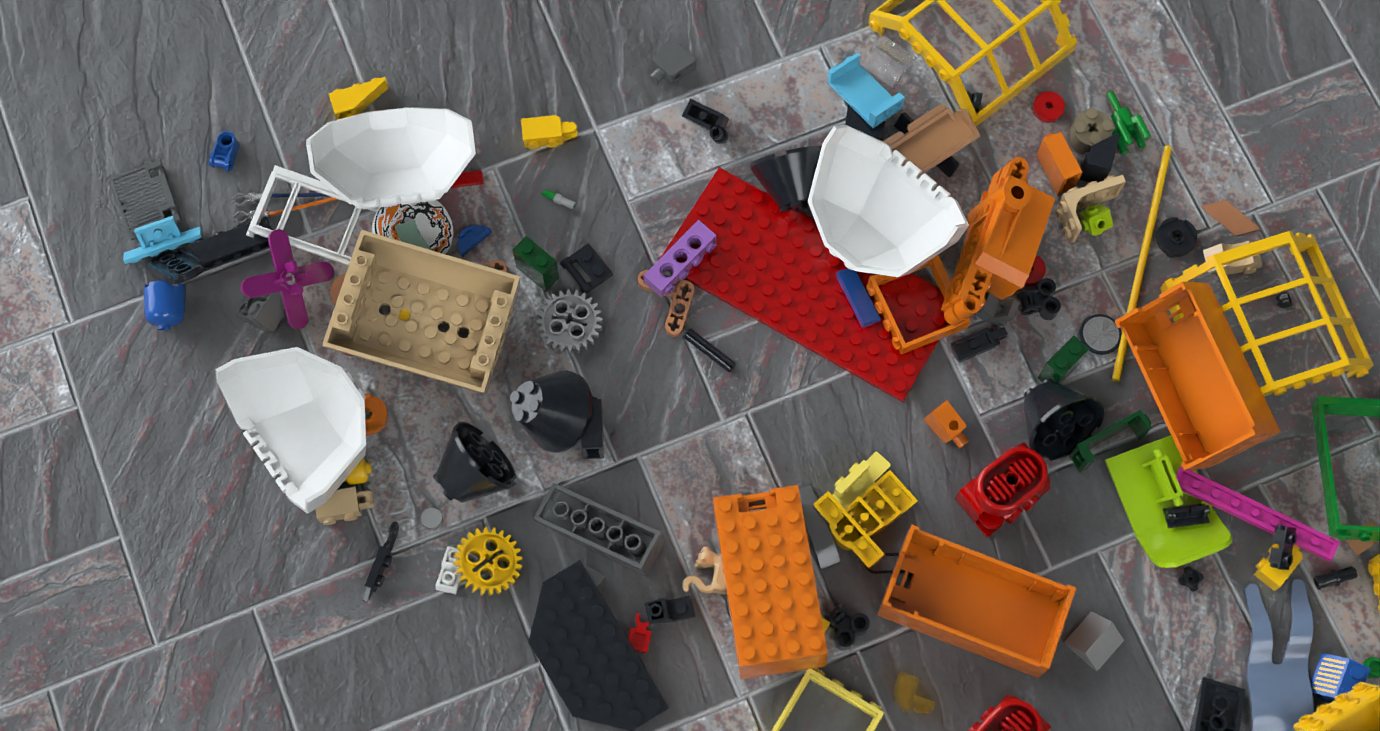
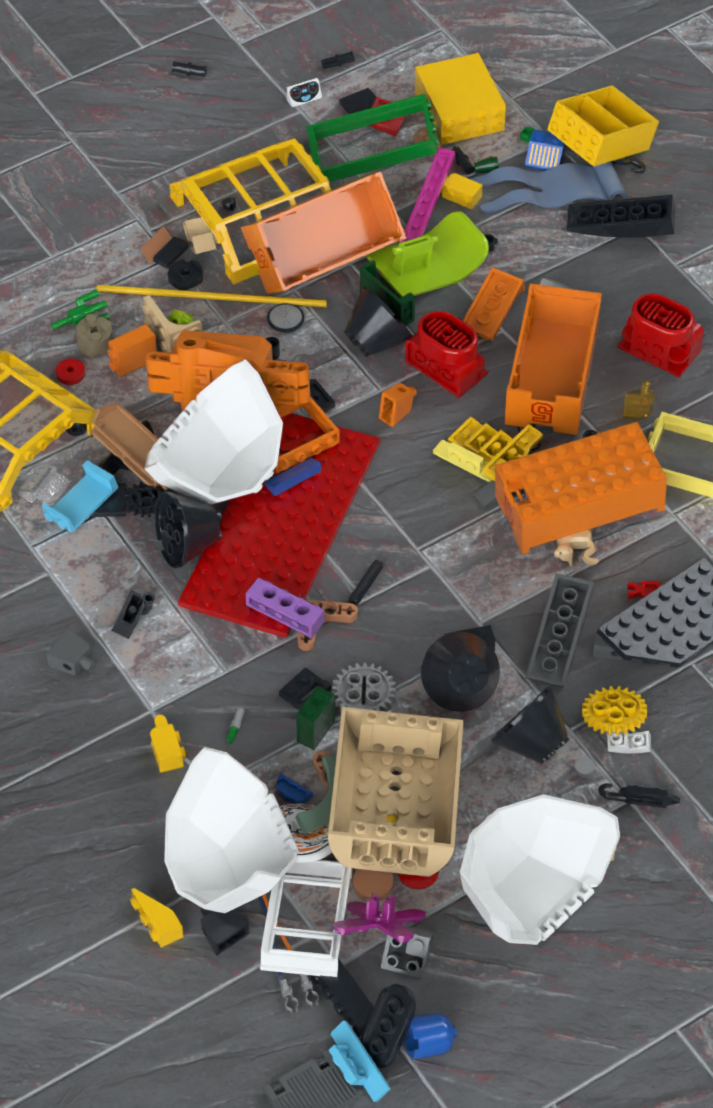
camera: 100 degrees left, 20 degrees down
(223, 155) = (242, 1027): blue piece -> none
(667, 610) = (616, 571): black slope -> none
(1064, 361) = (325, 328): dark green brick -> none
(1082, 557) = (493, 303): none -> orange plate
(1098, 162) = (122, 317): black slope -> none
(1187, 515) = (439, 249): black hinge -> none
(1214, 227) = (170, 252): none -> black tile
(1286, 538) = (446, 177): black hinge -> none
(1322, 605) = (486, 165): none -> dark green cone

